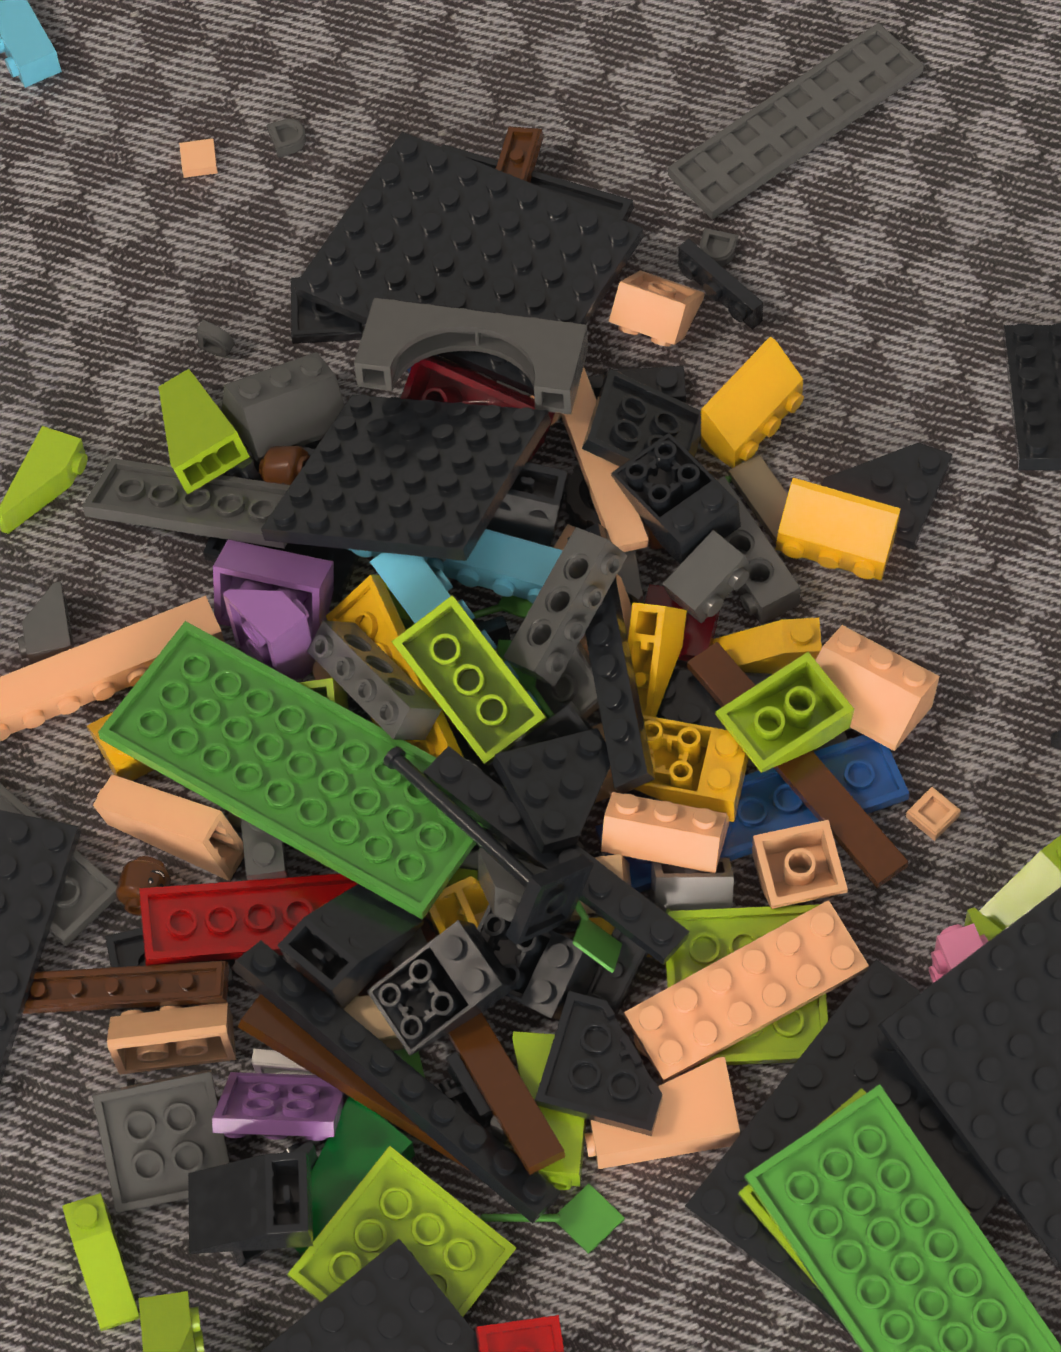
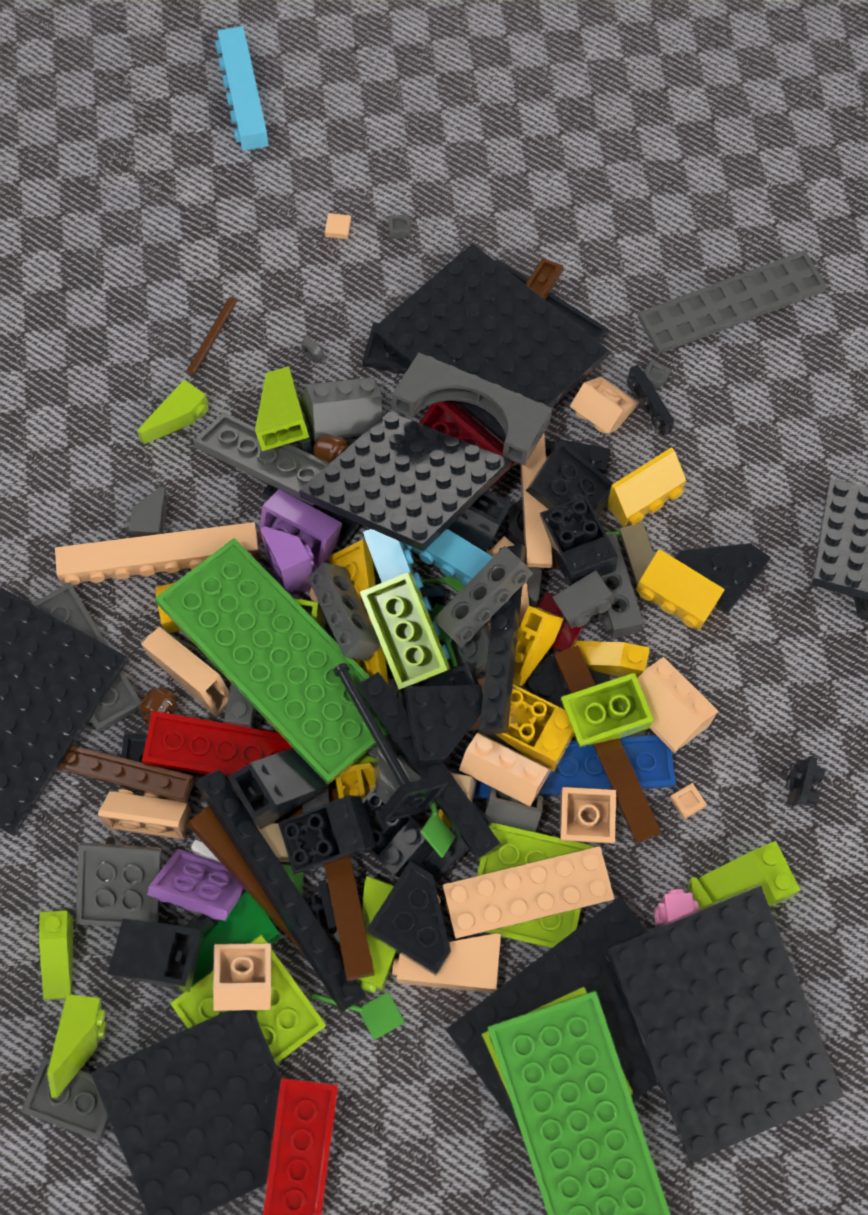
camera: 10 degrees right, 5 degrees up
(60, 358) = (211, 336): none -> reddish brown bar
(381, 1207) = (242, 977): none -> light nougat slope

